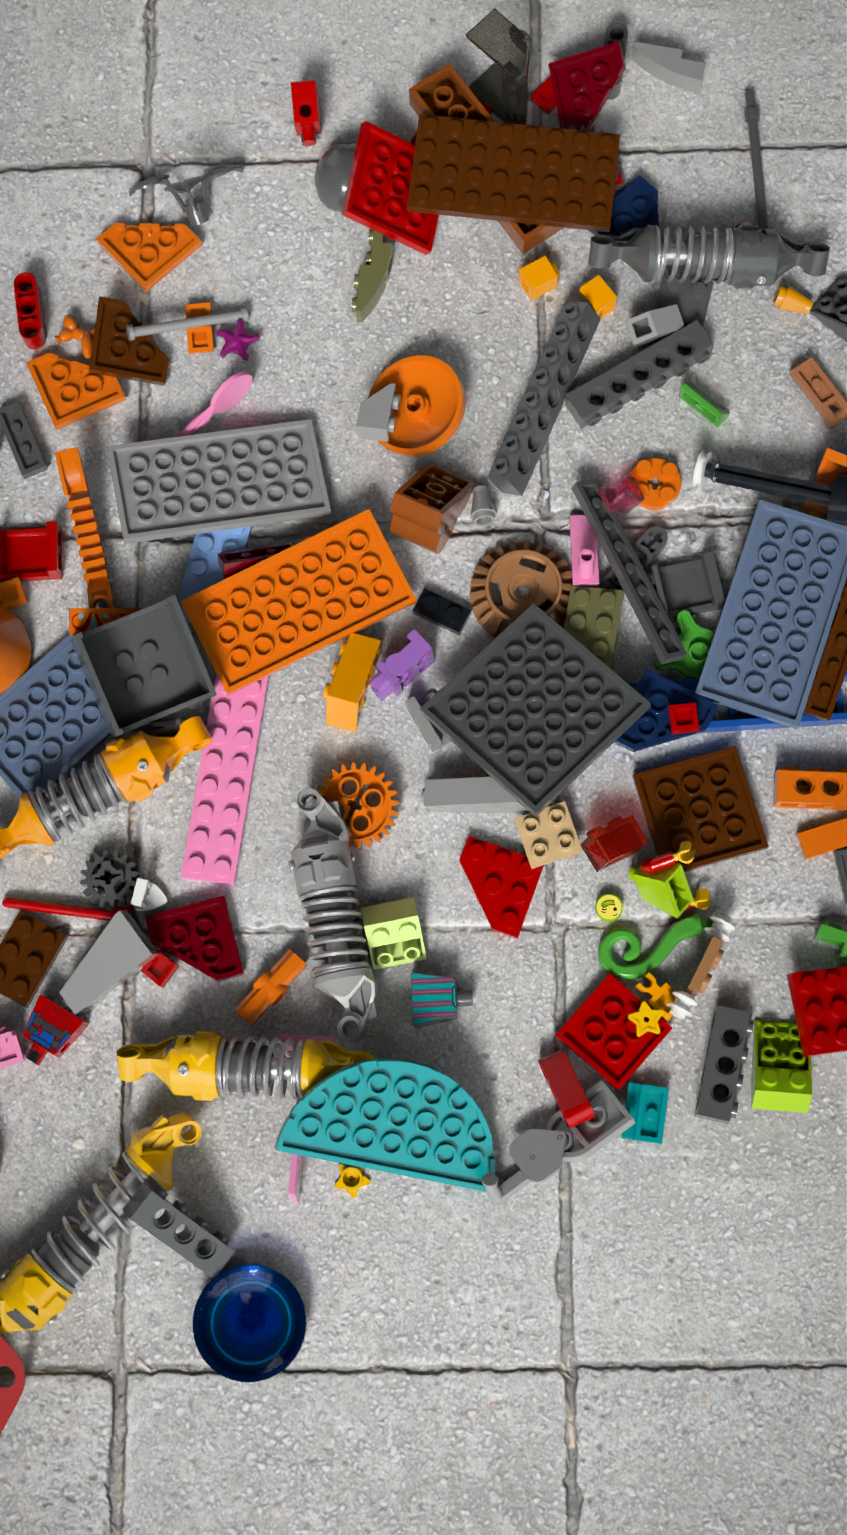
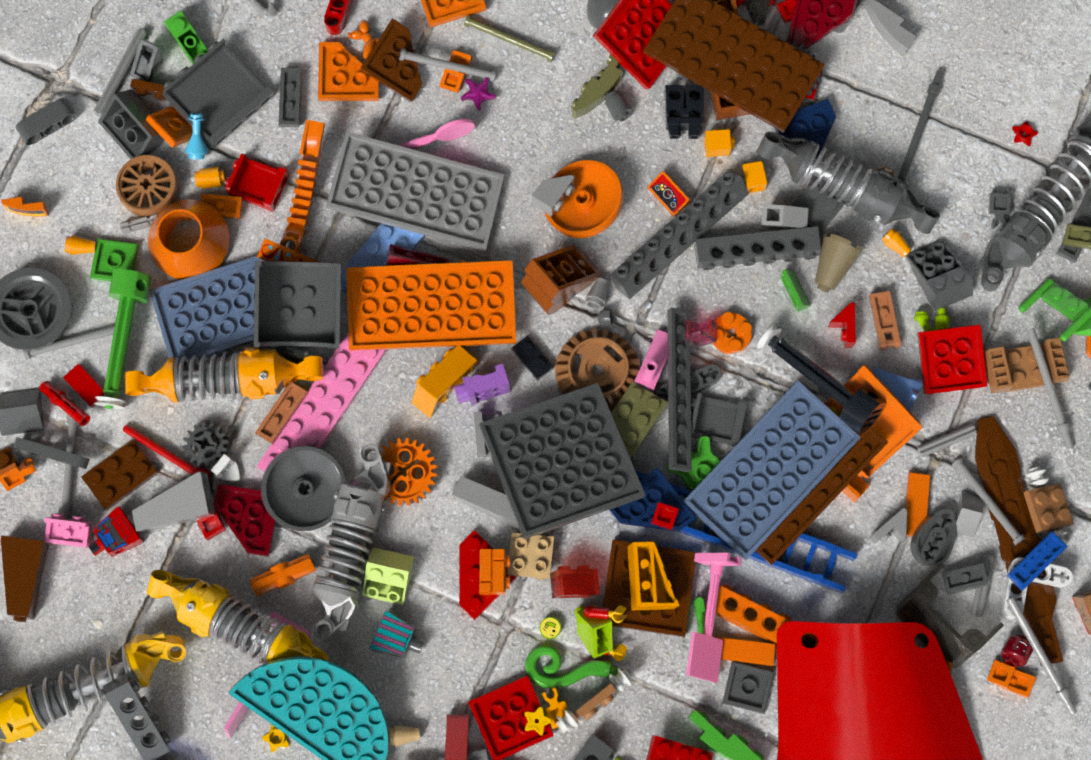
camera: 15 degrees right, 0 degrees up
(181, 802) = (281, 413): none -> nougat plate
(246, 876) = (301, 487): none -> dark grey dish
(250, 264) = (549, 55): none -> olive bar
(404, 286) = (617, 106): none -> dark grey brick
(482, 258) = (684, 117): none -> black hips
(498, 1107) = (402, 735): none -> tan cone
(503, 528) = (605, 317): none -> dark grey hinge
(509, 358) = (668, 194): none -> slope
(515, 872) = (493, 572): none -> orange brick
(697, 799) = (648, 579): none -> light orange wedge
(735, 349) = (835, 261): none -> dark tan cone
(768, 807) = (699, 609): none -> bright green hinge
(781, 412) = (846, 320): none -> red slope
(798, 847) = (704, 648): none -> bright pink piece

